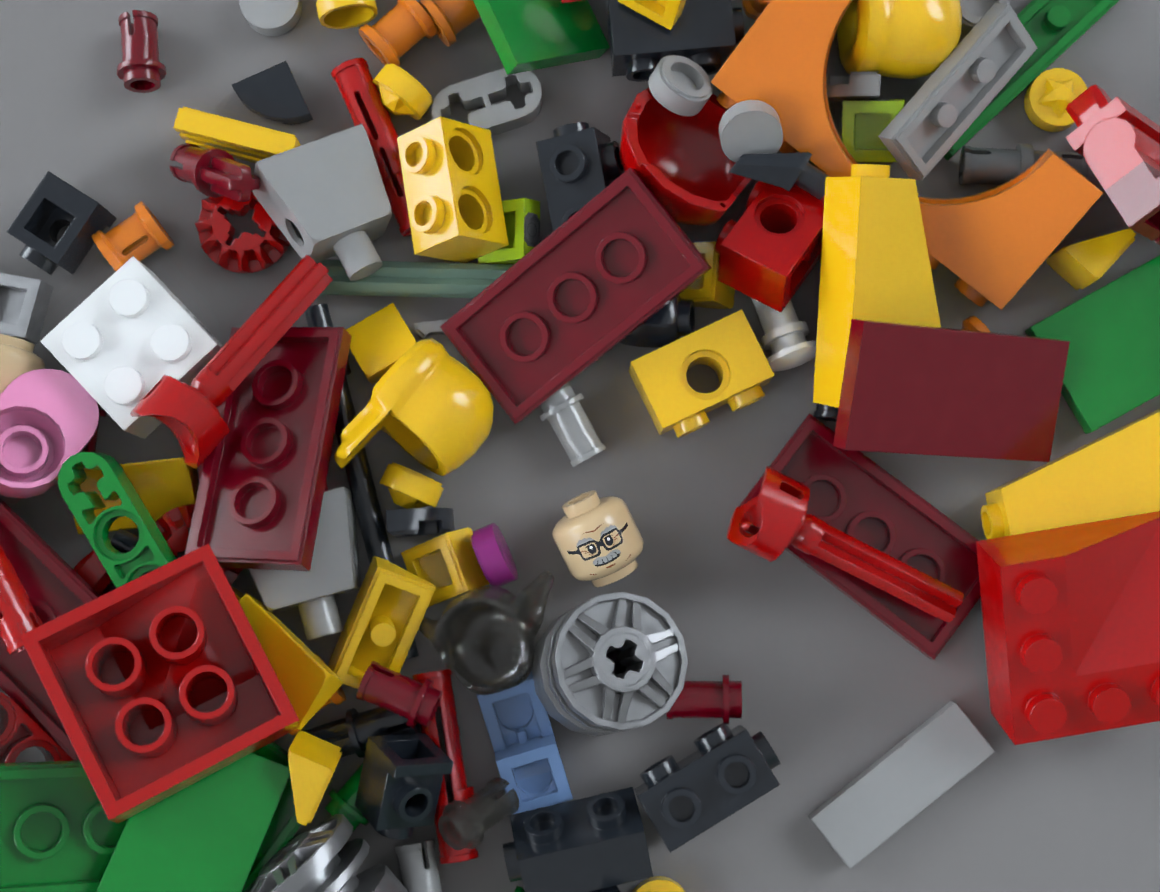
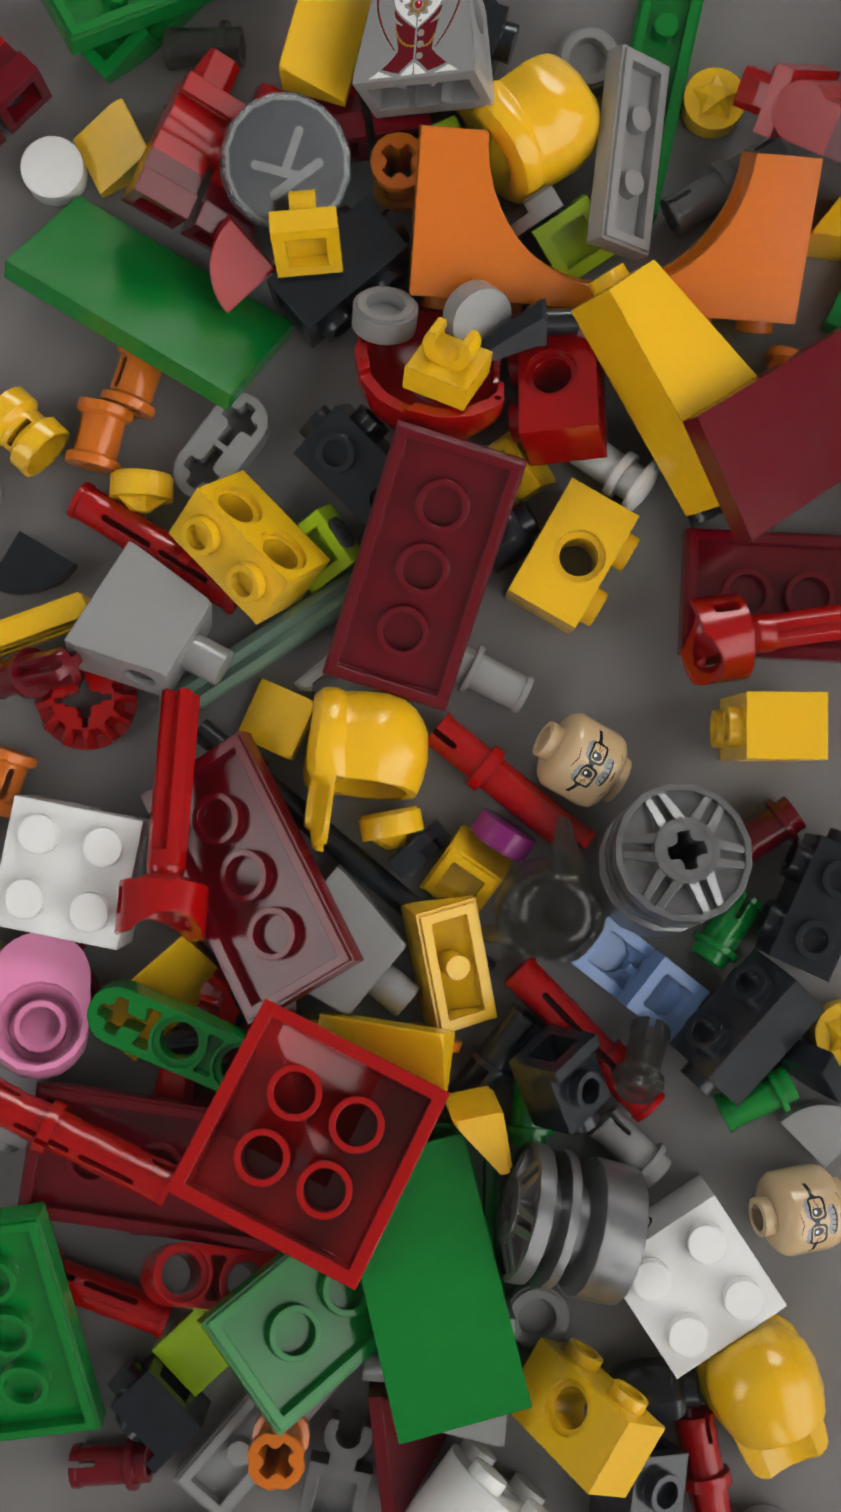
camera: 30 degrees left, 5 degrees up
(400, 694) = (509, 1008): dark red pin -> none
(523, 512) = (501, 781): none -> red pin
(617, 757) = (725, 933): none -> green pin
(699, 154) = (447, 366): none -> yellow tile
(764, 613) = (771, 726): none -> yellow brick

